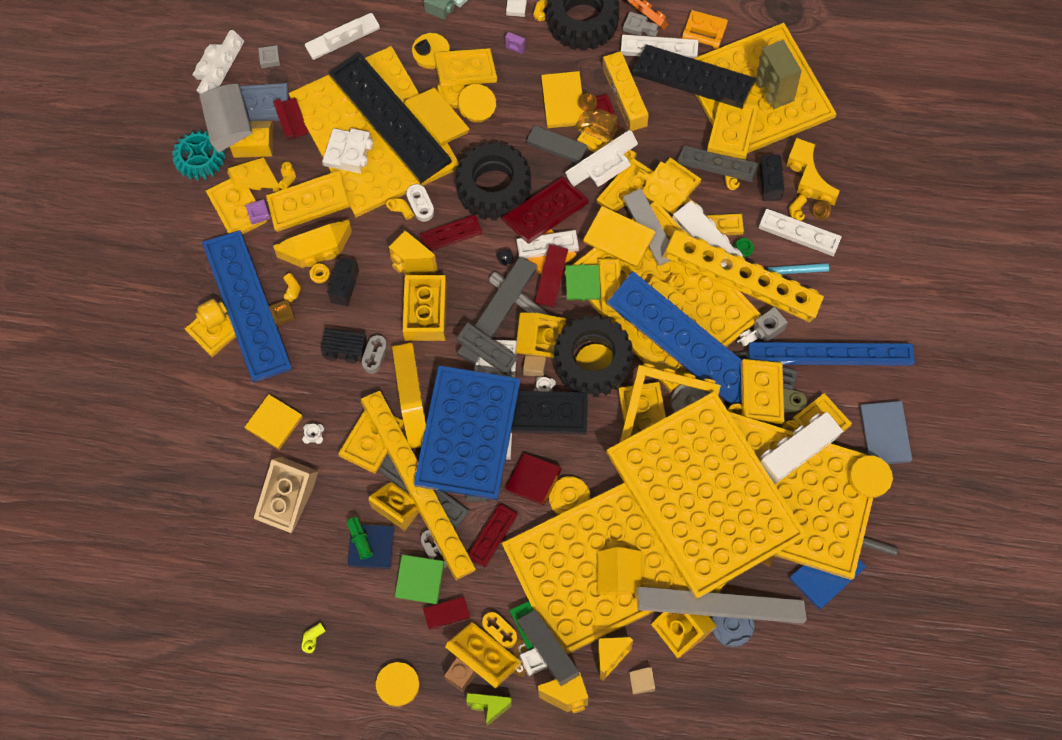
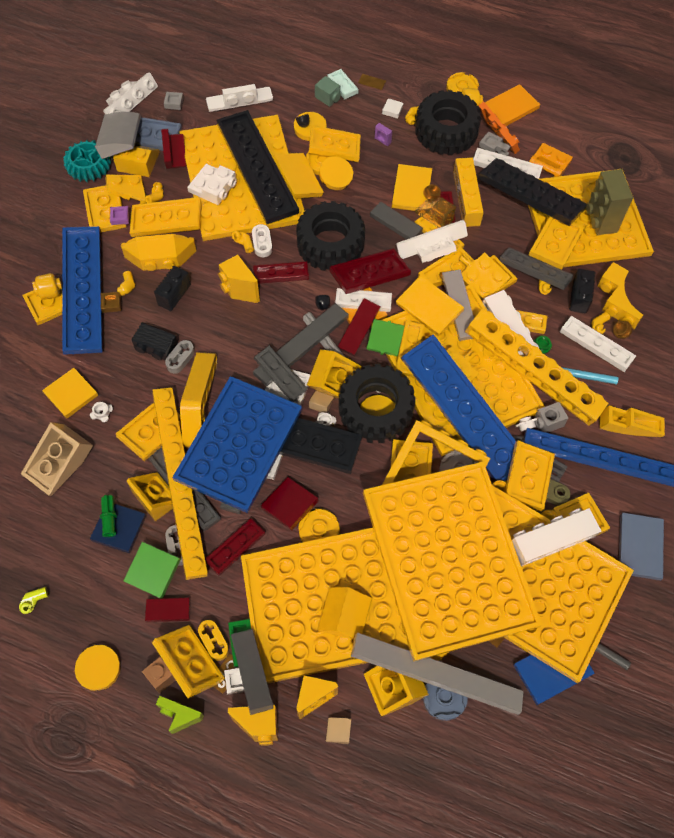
camera: 10 degrees right, 5 degrees down
(319, 268) = (154, 273): yellow plate -> none
(425, 308) = (236, 326): yellow brick -> none
(851, 309) = (632, 422): none -> yellow slope
(871, 476) = (619, 583): yellow tile -> none

